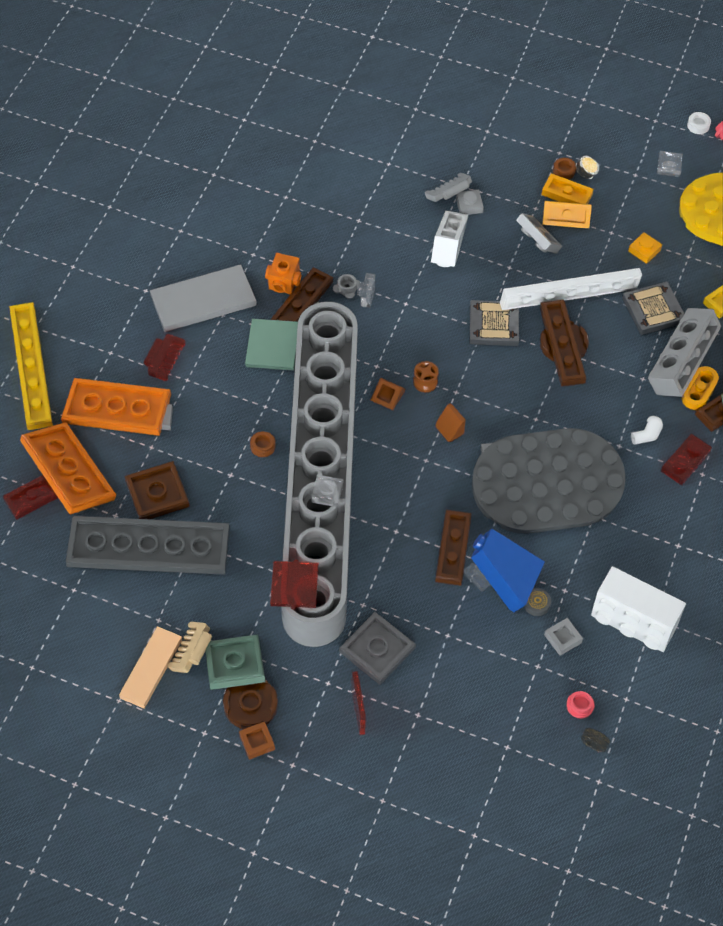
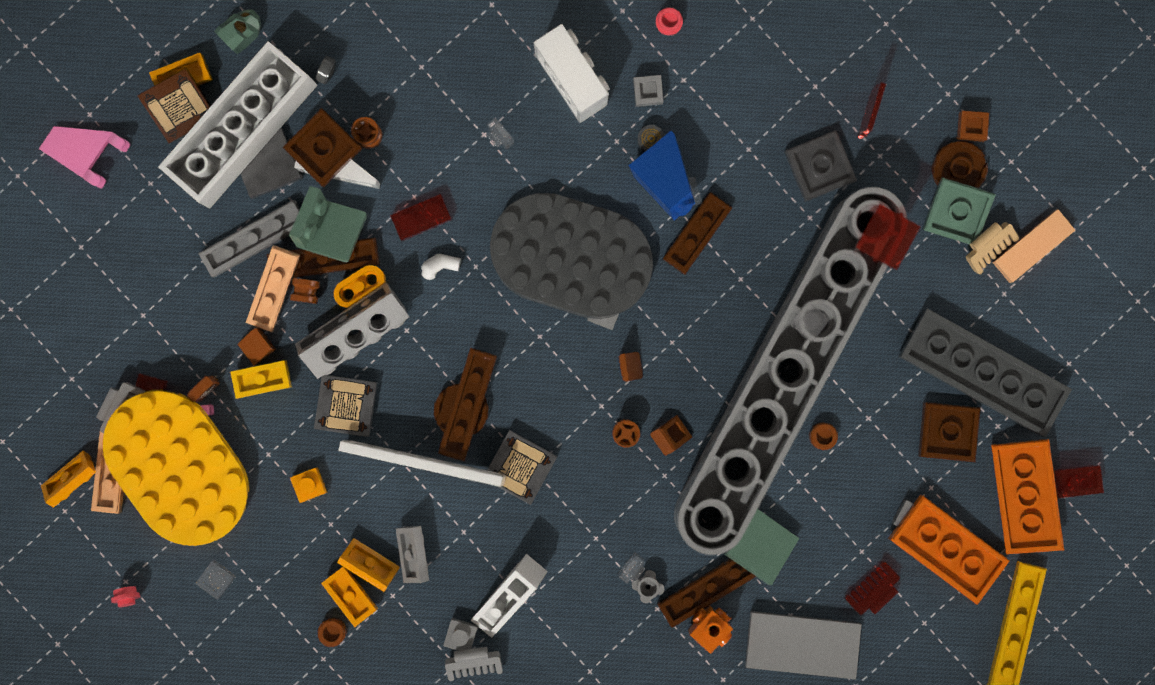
camera: 155 degrees left, 30 degrees up
(587, 167) = (308, 619): clear smoke tile -> none
(665, 544) = (499, 134): none -> clear plate
(699, 123) = (145, 623): white tile -> none

